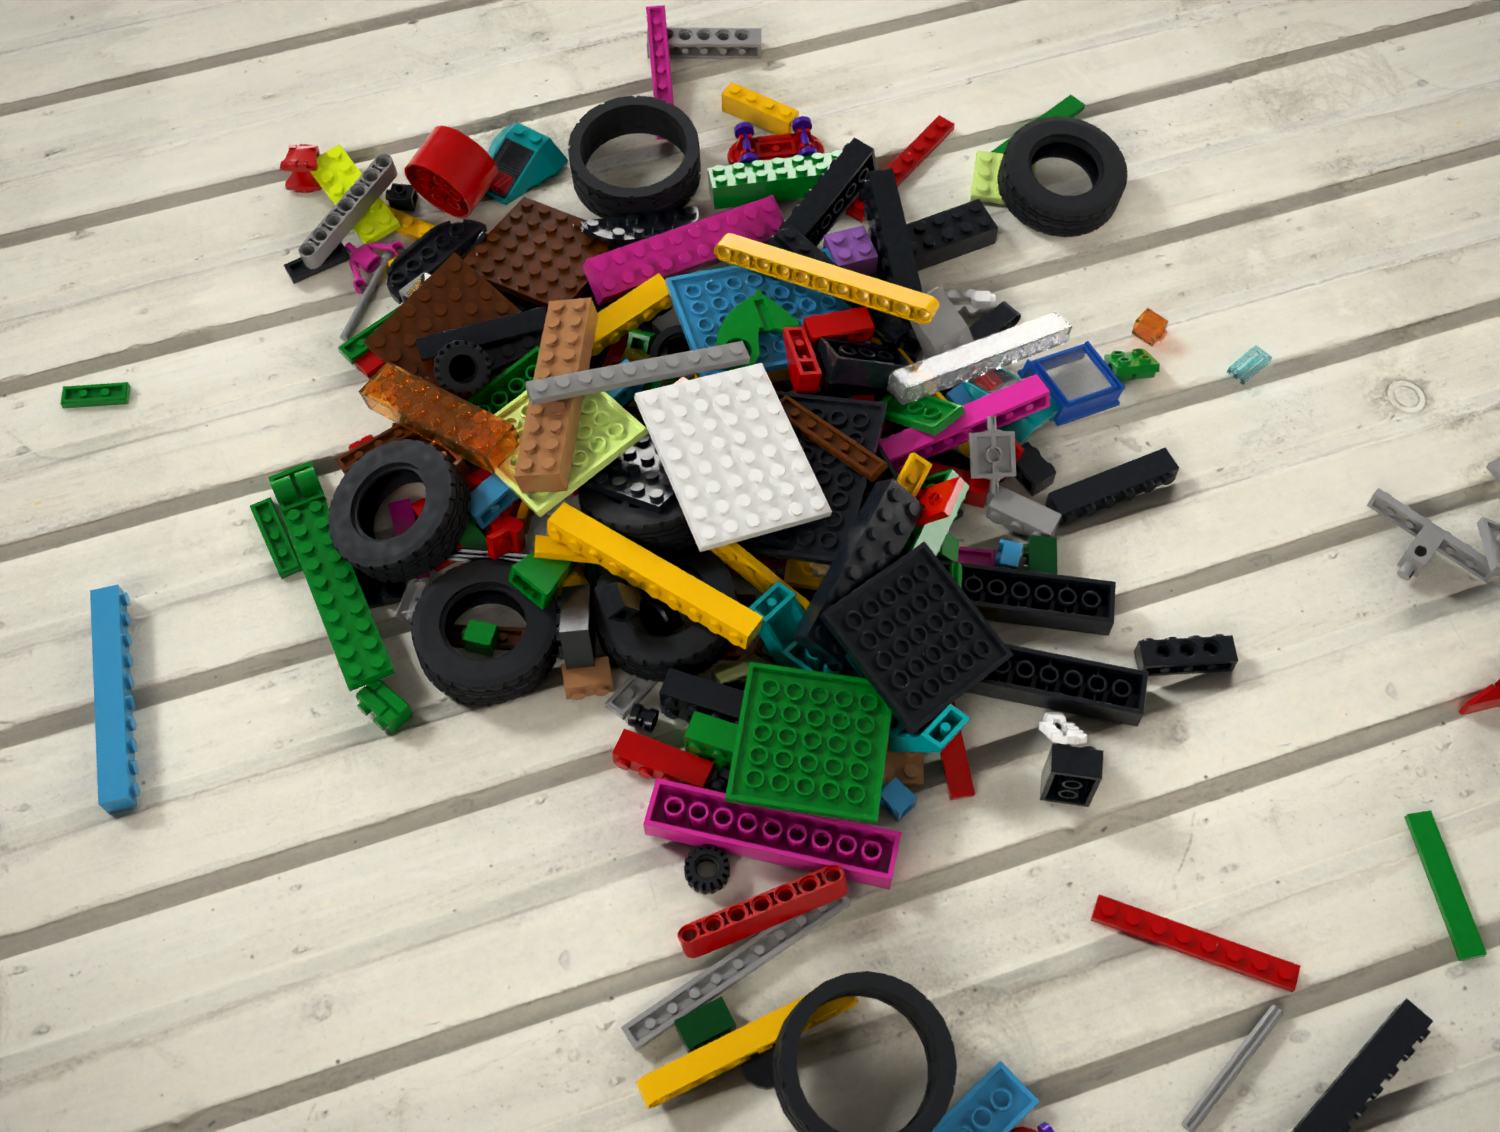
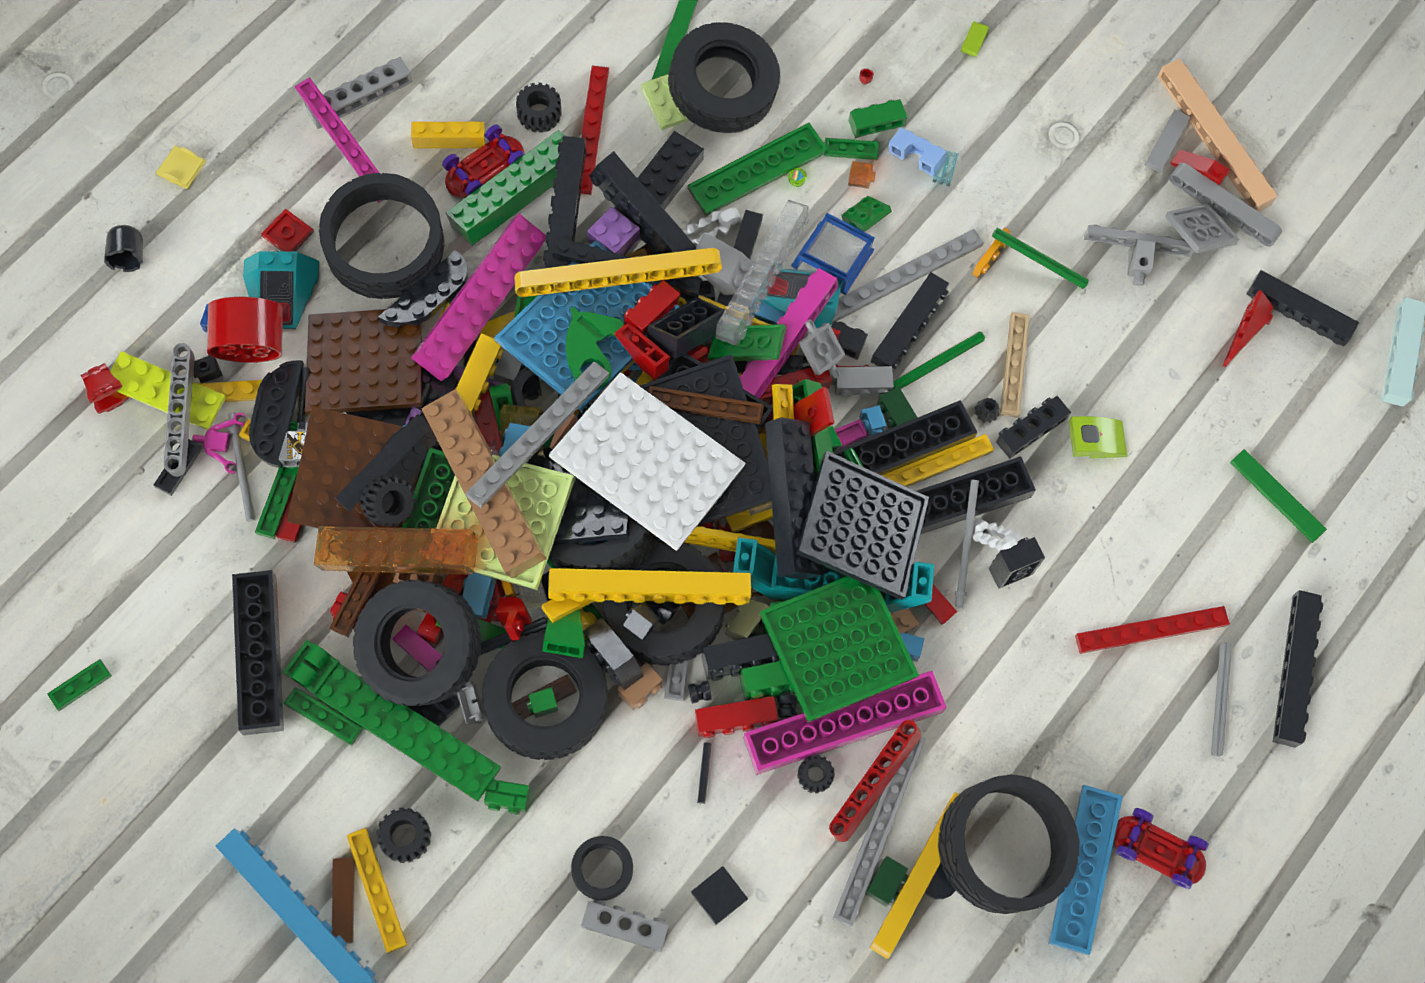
camera: 40 degrees left, 10 degrees up
(166, 710) = (343, 898): none -> reddish brown tile
(201, 722) = (376, 890): none -> yellow tile
(253, 668) = (395, 820): none -> black tyre
(258, 448) = (257, 653): none -> black brick
(405, 805) = (590, 845): none -> black tyre
(406, 69) = (124, 248): none -> black cylinder
(422, 932) = (632, 935): none -> light grey brick
(507, 34) = (181, 167): none -> light yellow piece
(520, 931) = (719, 895): none -> black tile
(556, 123) = (287, 232): none -> red tile
(592, 800) = (704, 773): none -> black bar
(863, 121) = (535, 95): none -> black tyre
(991, 777) = (966, 544): none -> light grey bar
(1045, 273) = (757, 169): none -> green plate
(1058, 636) = (941, 461): none -> yellow plate
(1081, 300) = (797, 177): none -> clear neon green tile
(1121, 539) = (939, 360): none -> green axle
(1138, 441) = (907, 273): none -> light grey plate
(1143, 613) = (985, 415): none -> black piece
(1157, 302) = (851, 148): none -> green tile
(1203, 285) = (877, 118): none -> green brick
(1205, 586) = (1014, 365): none -> tan tile
(1216, 244) = (866, 76): none -> red hinge
(1235, 342) = (907, 143): none -> light blue arch
(1248, 465) = (991, 254): none -> light orange plate
(1255, 705) = (1097, 437): none -> lime slope
(1301, 495) = (1040, 258): none -> green axle
(1360, 263) = (974, 39): none -> lime tile

